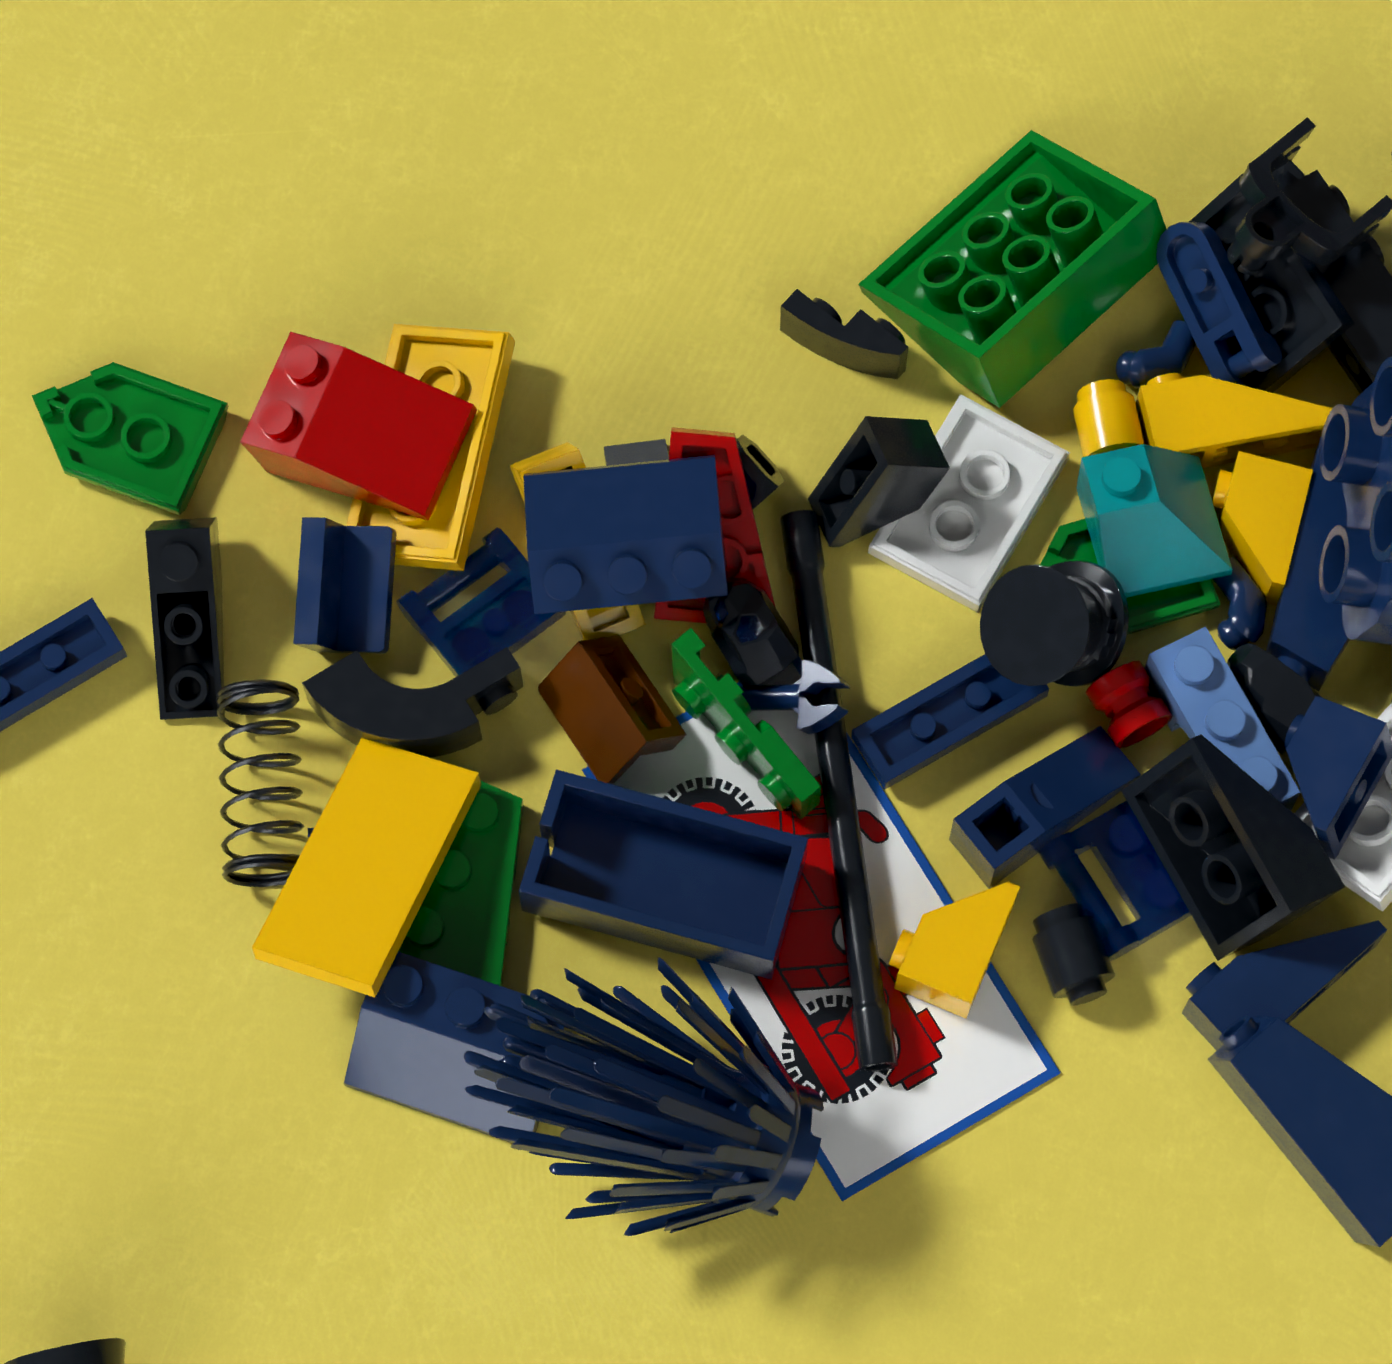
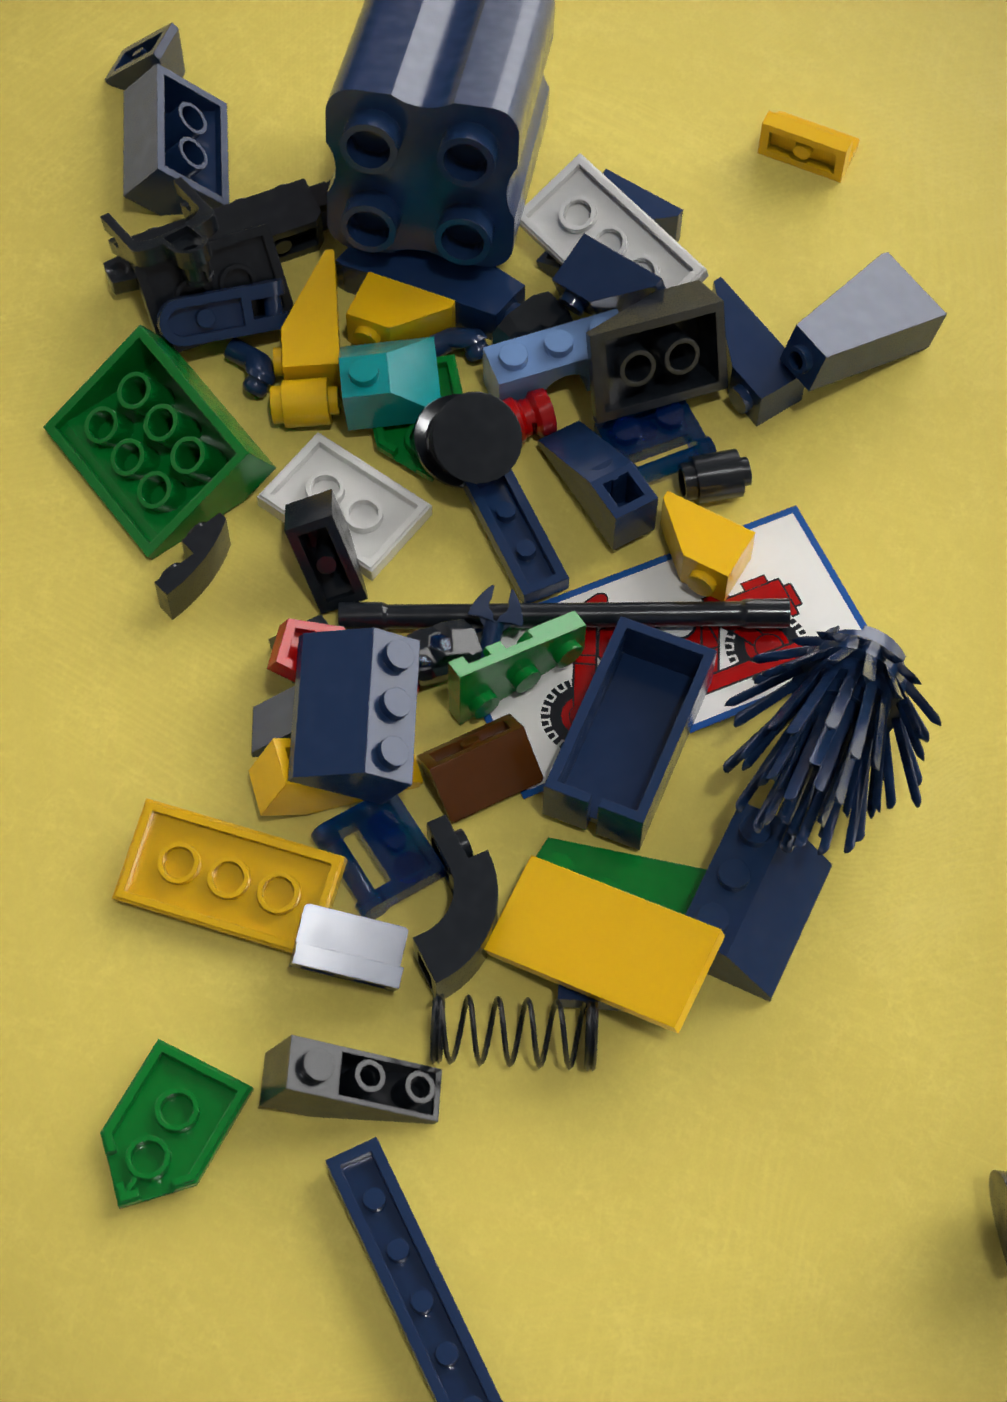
camera: 85 degrees left, 10 degrees down
(356, 427) = (210, 922): red slope -> none

